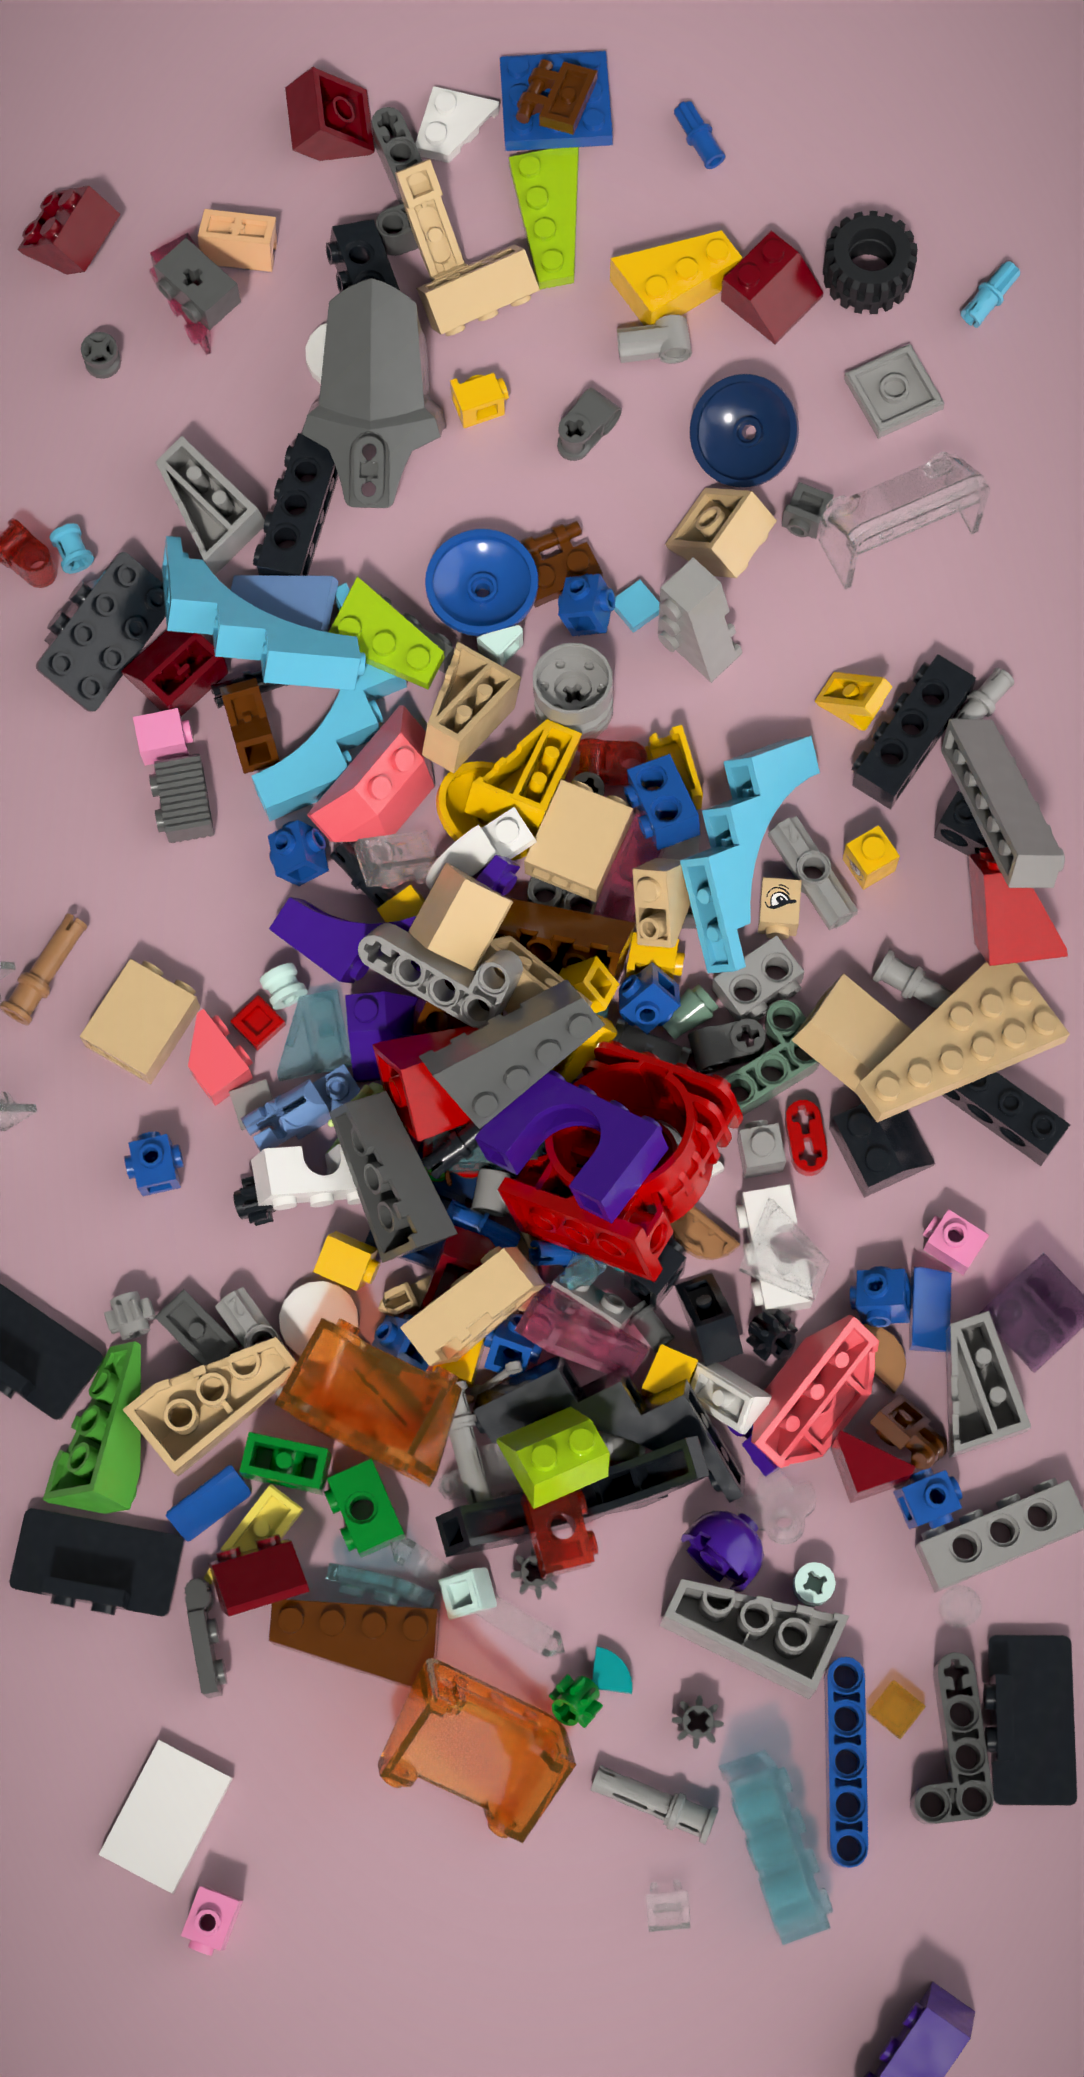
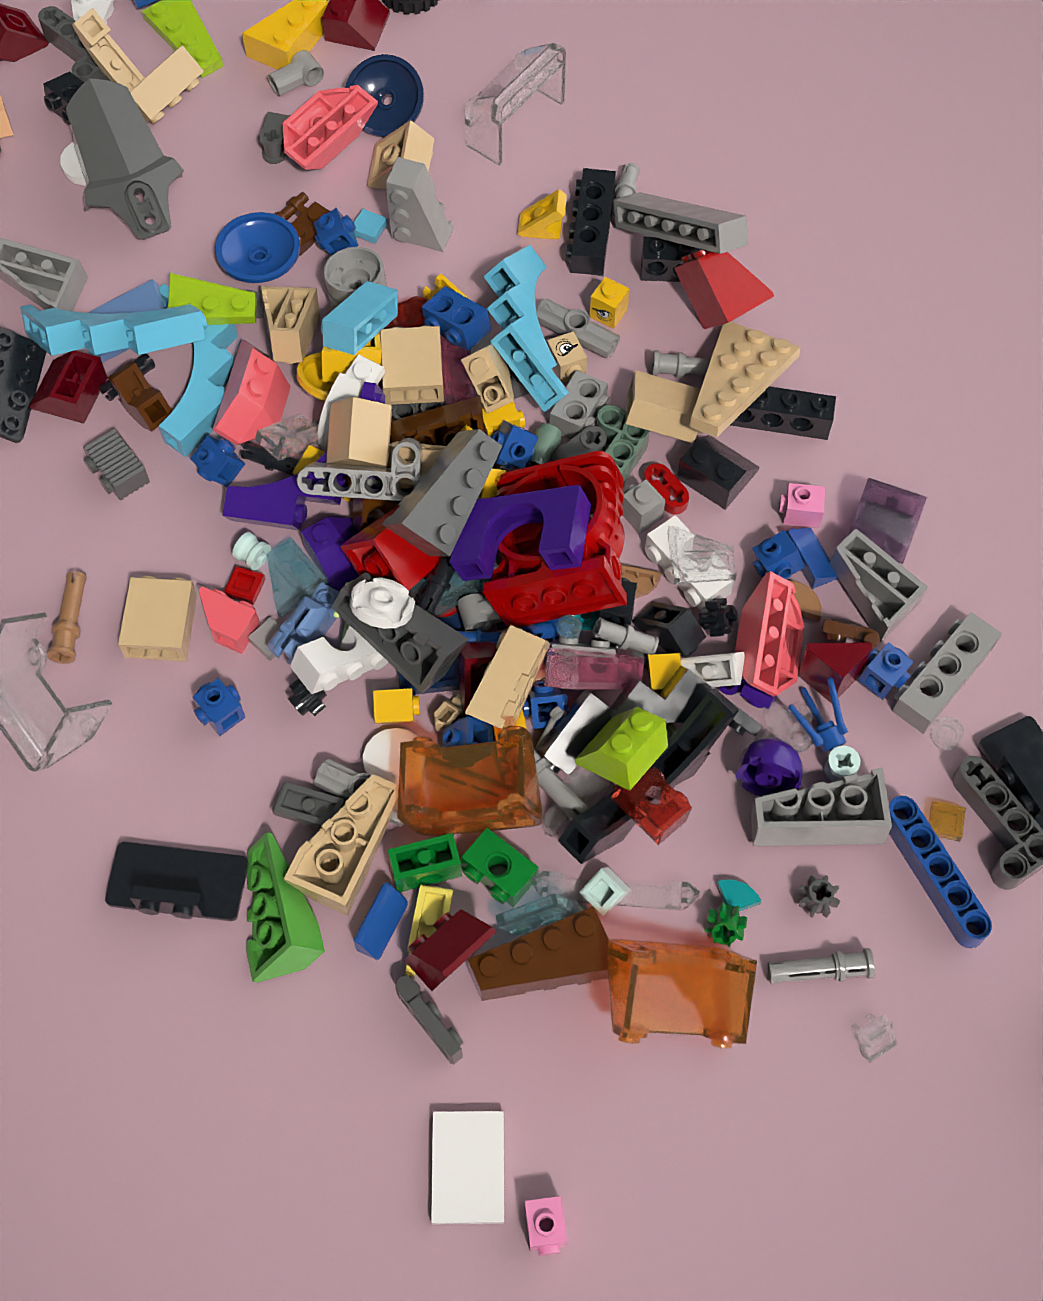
camera: 30 degrees left, 10 degrees down
(96, 1563) = (317, 1007): black bracket -> none
(130, 1315) = (253, 818): light grey gear -> none
(162, 735) = (79, 429): bright pink brick -> none
(305, 528) = (106, 255): black brick -> none
(378, 1145) = (382, 603): none -> white tile
(479, 398) = (195, 149): yellow brick -> none
(501, 644) = (290, 277): light aqua slope -> none
(537, 1584) = (642, 860): dark grey gear -> none
(541, 756) = (360, 317): none -> medium azure brick
(644, 1311) = (625, 636): none -> light grey pin
(646, 444) = (326, 125): none -> coral wedge
(776, 1846) = (925, 950): clear light blue wedge -> none
(806, 511) = (450, 128): dark grey bracket -> none
(818, 1542) = (828, 734): none -> blue plant
(894, 391) = (465, 45): light grey tile -> none

